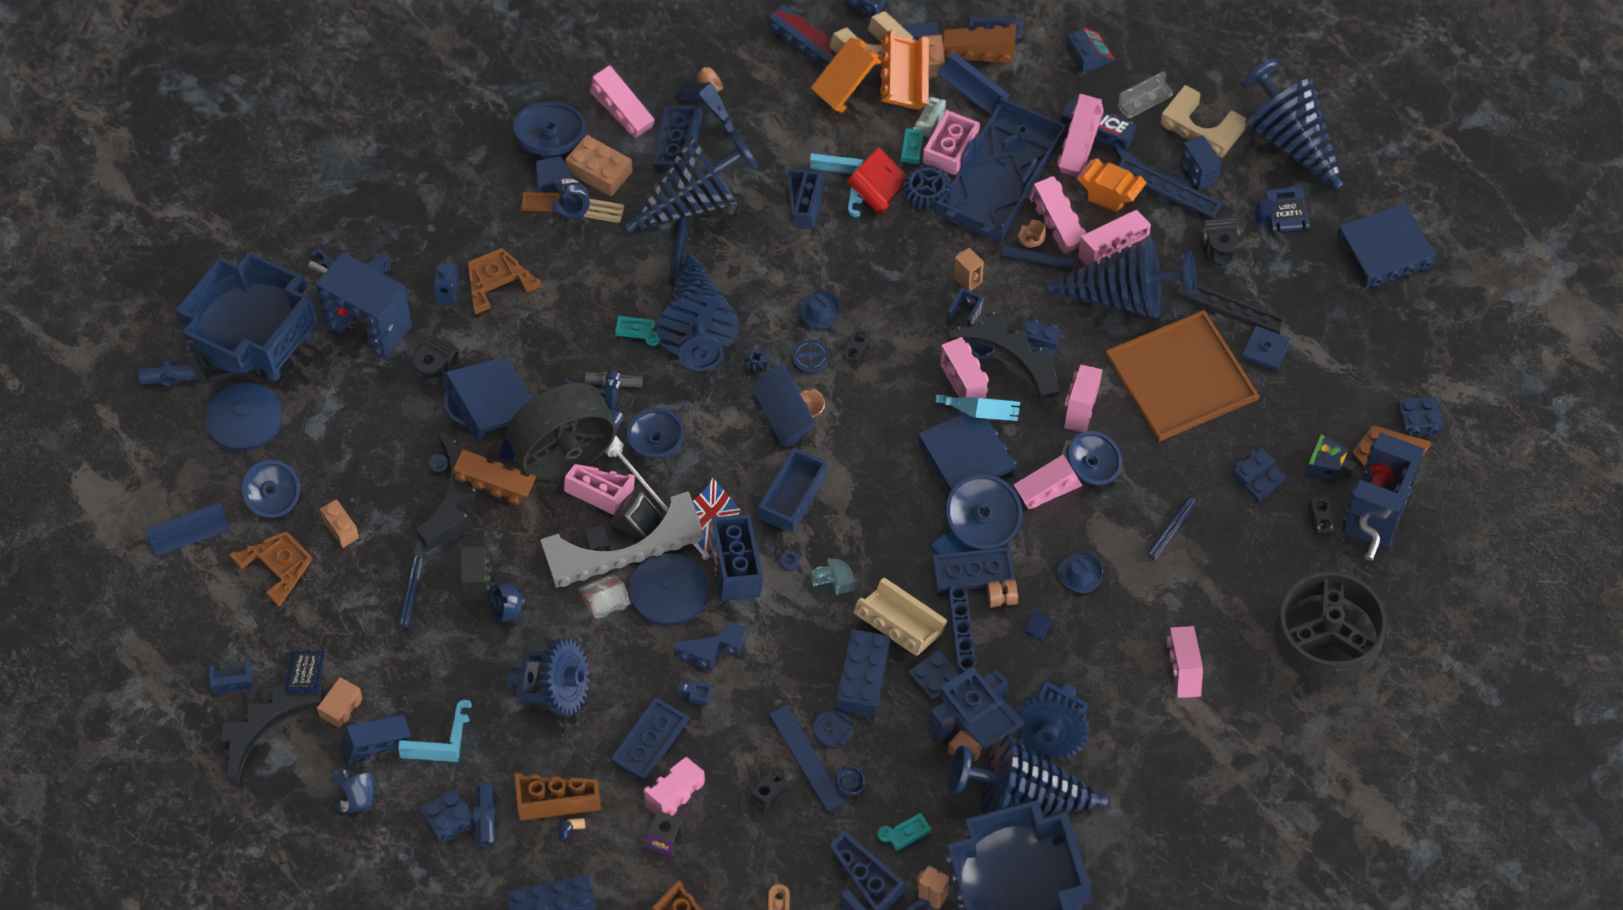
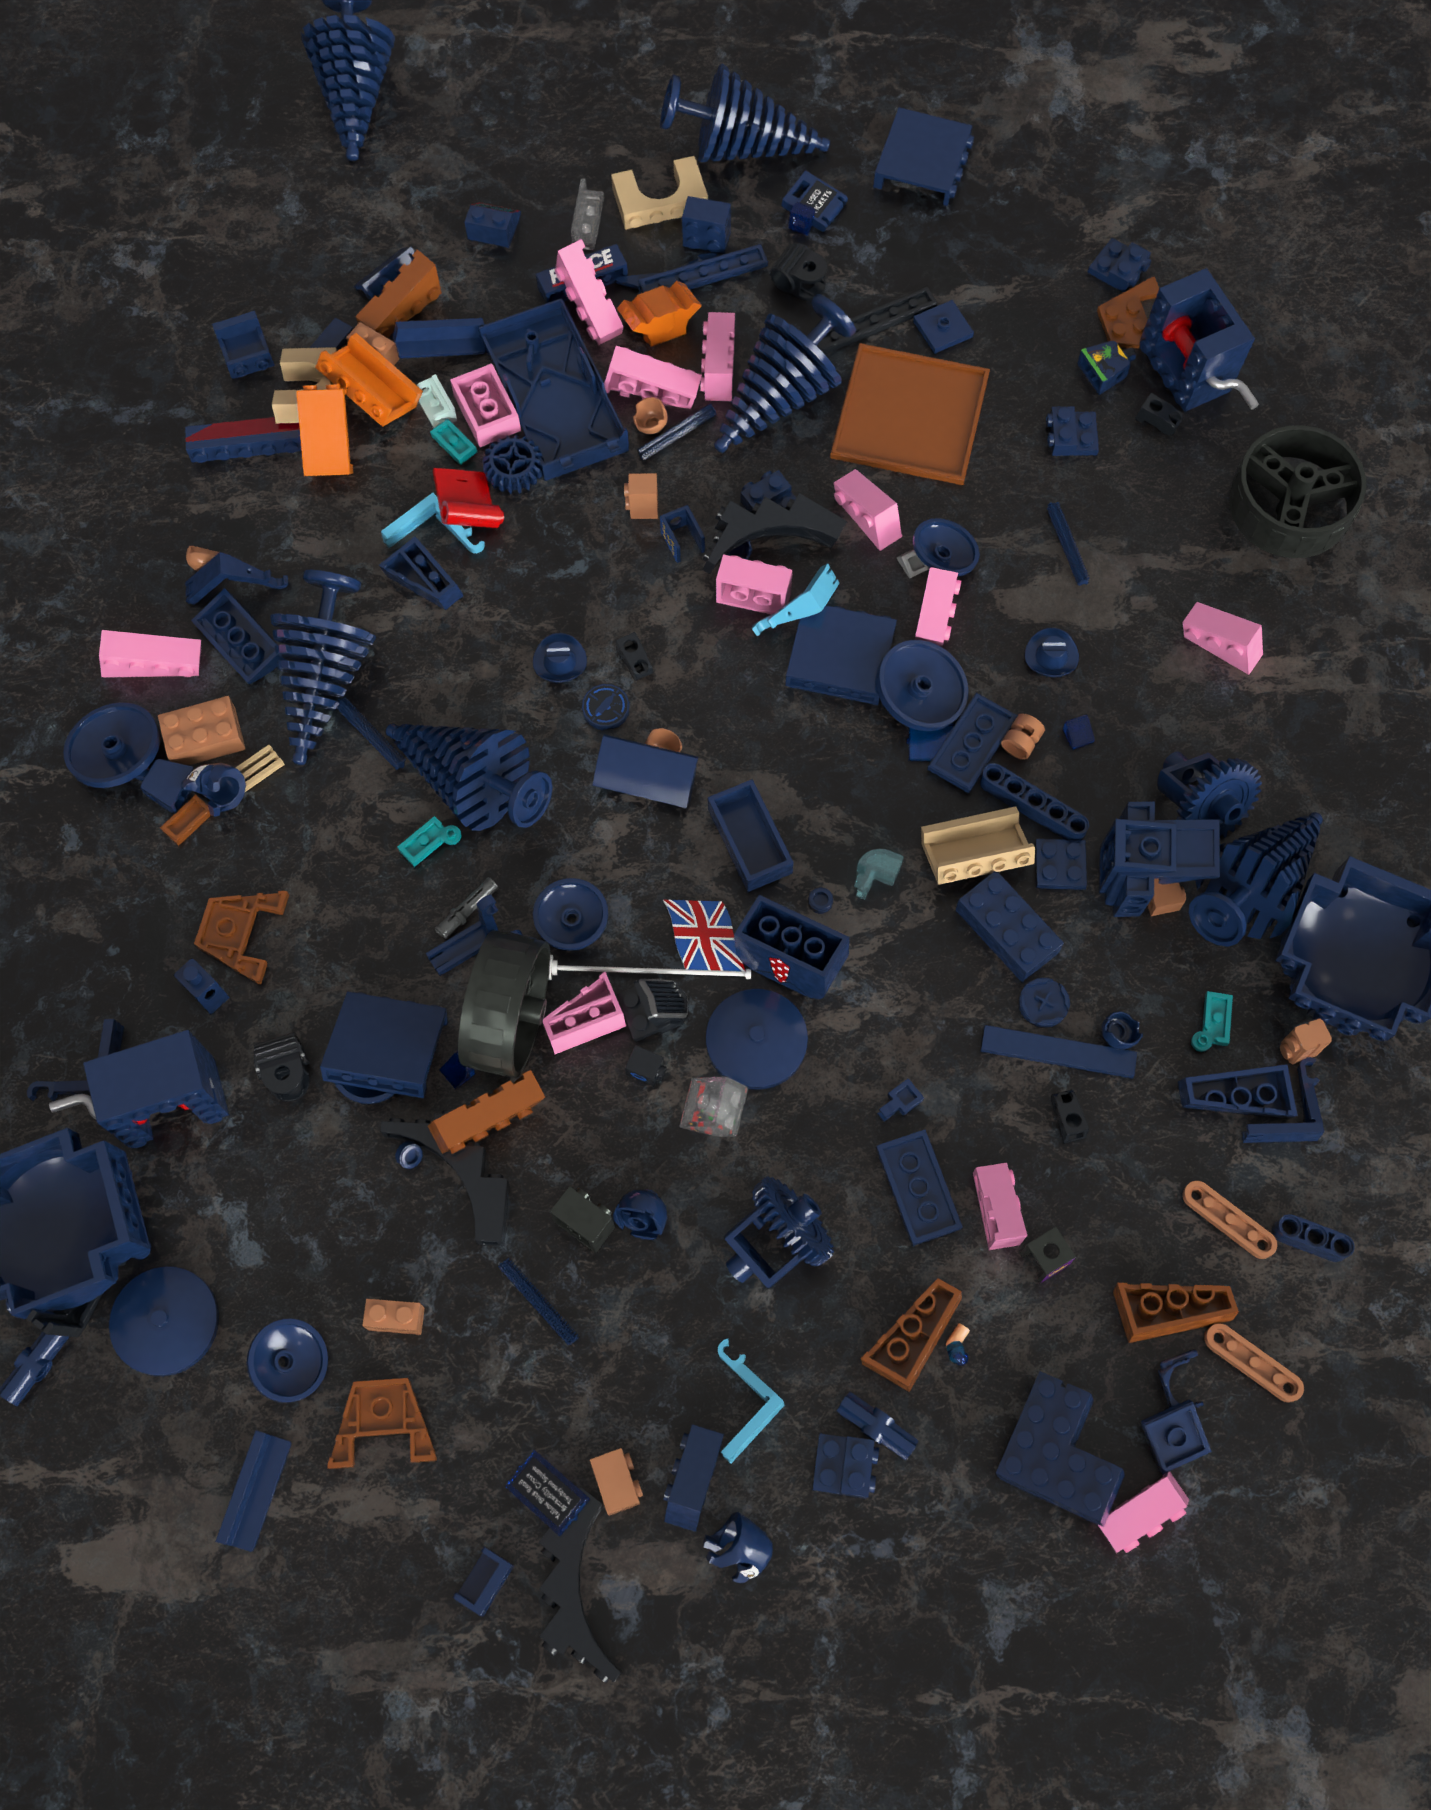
camera: 50 degrees left, 10 degrees up
(574, 563) = (647, 1112): light grey arch -> none
(705, 650) = (862, 1057): dark blue arch -> none
(756, 361) = (574, 758): dark blue gear -> none

